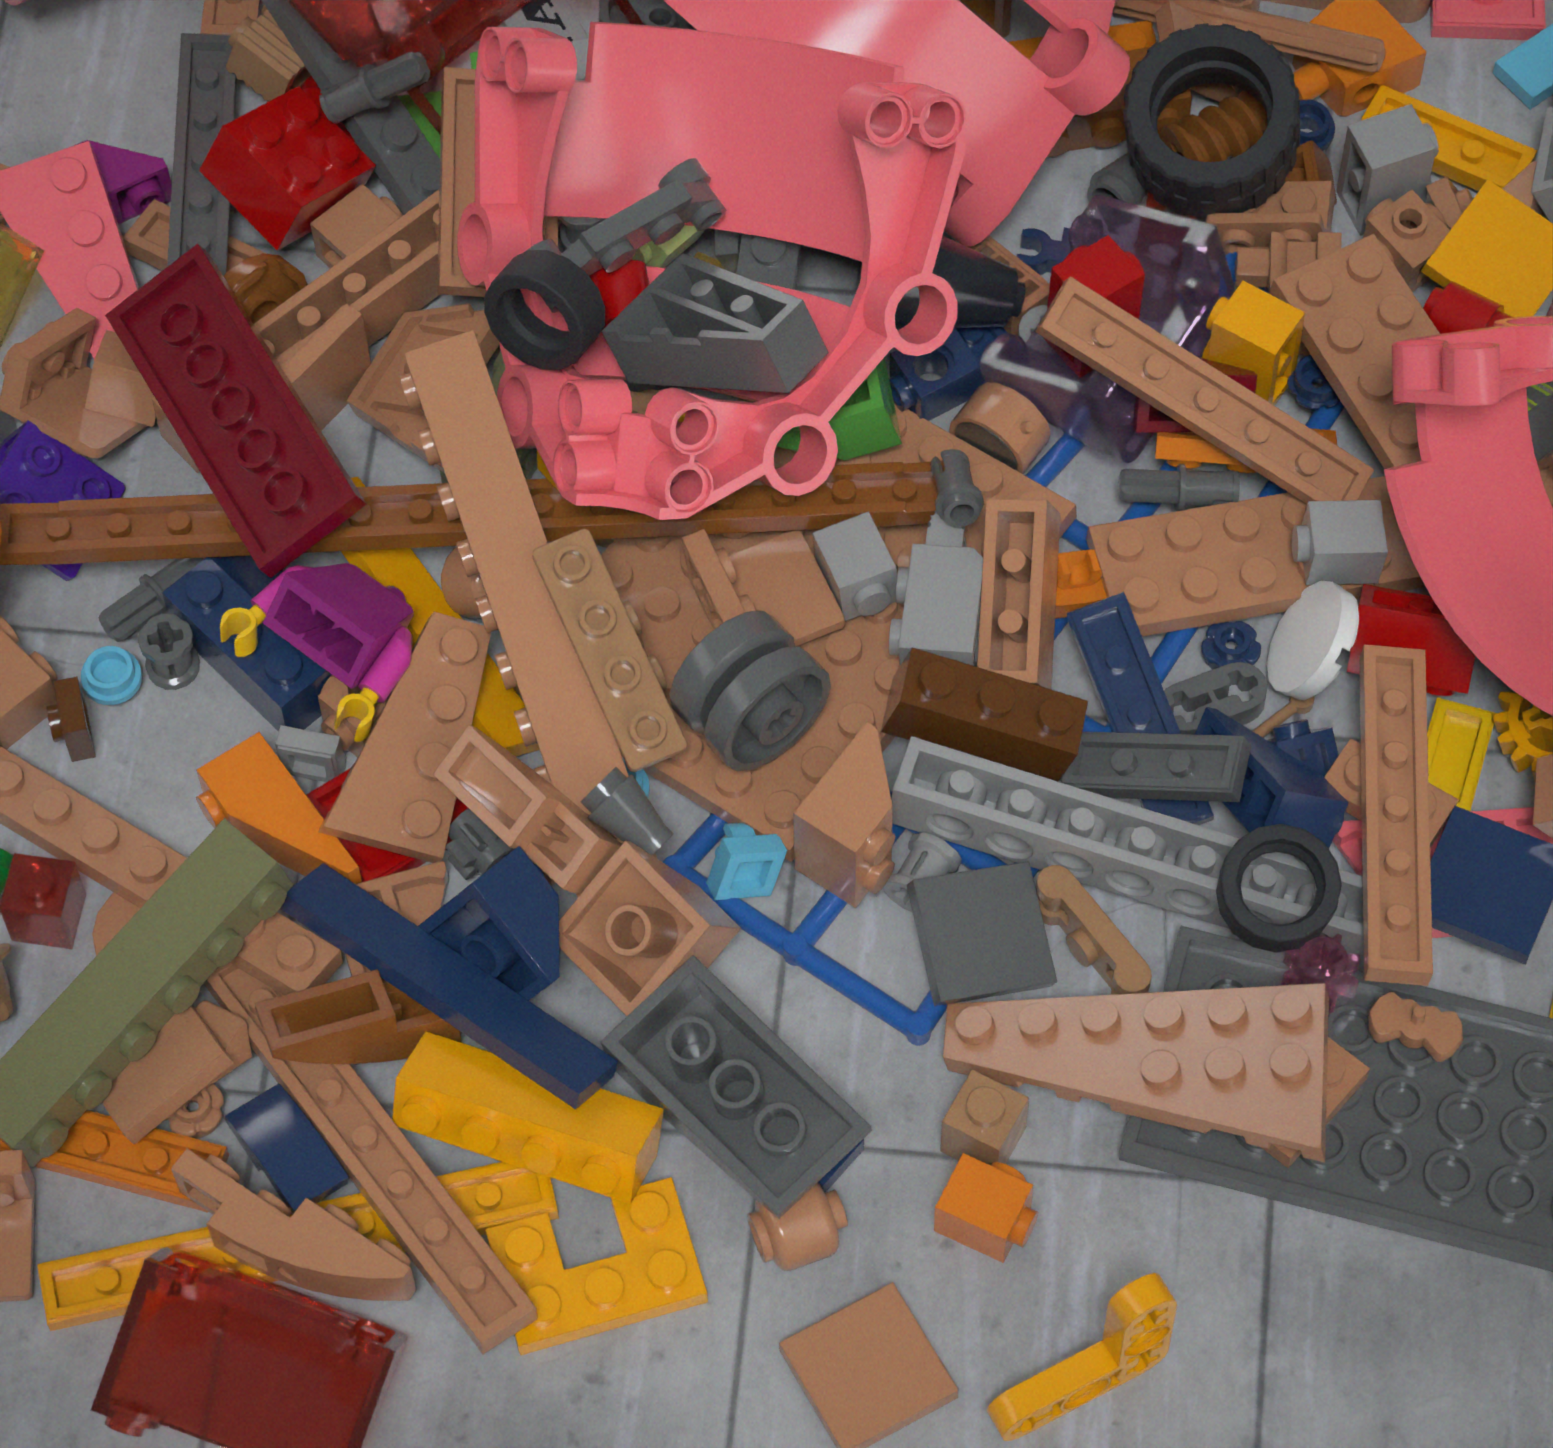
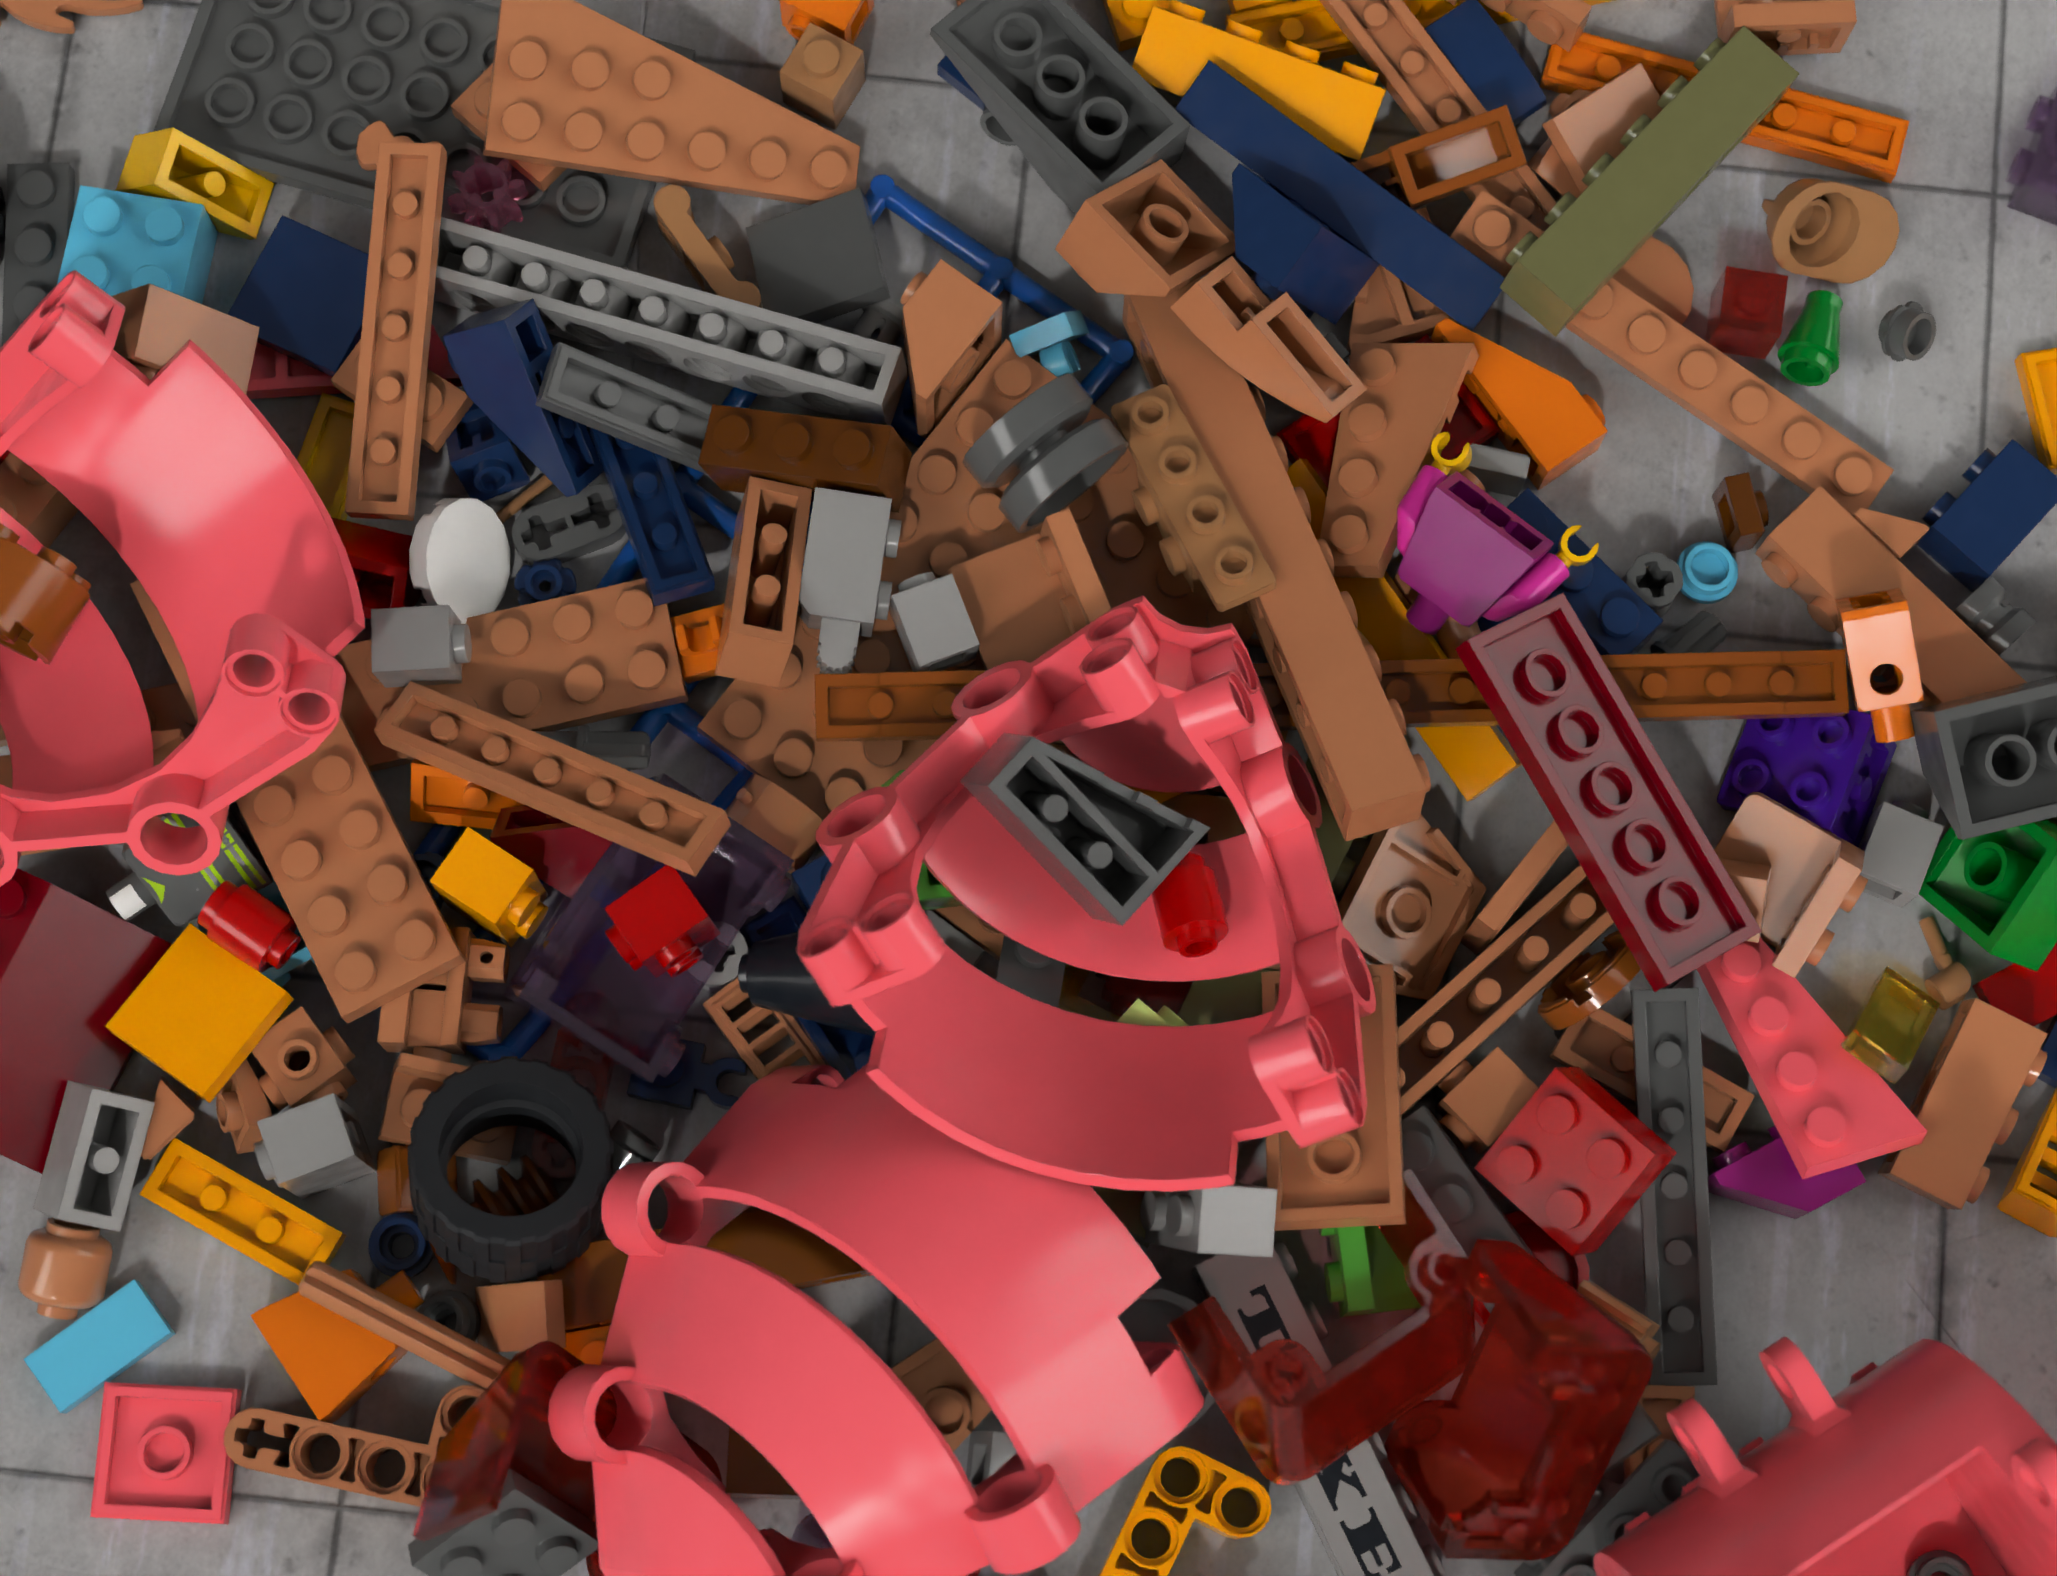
camera: 175 degrees right, 15 degrees up
(374, 86) = (1483, 1220): dark grey axle -> none
(561, 284) = (1274, 835): black tyre -> none
(626, 812) = (1173, 337): dark grey cone -> none
(656, 218) = (1160, 950): dark grey plate -> none
(957, 497) = (825, 674): dark grey pin -> none
(1290, 841) = (520, 198): black tyre -> none

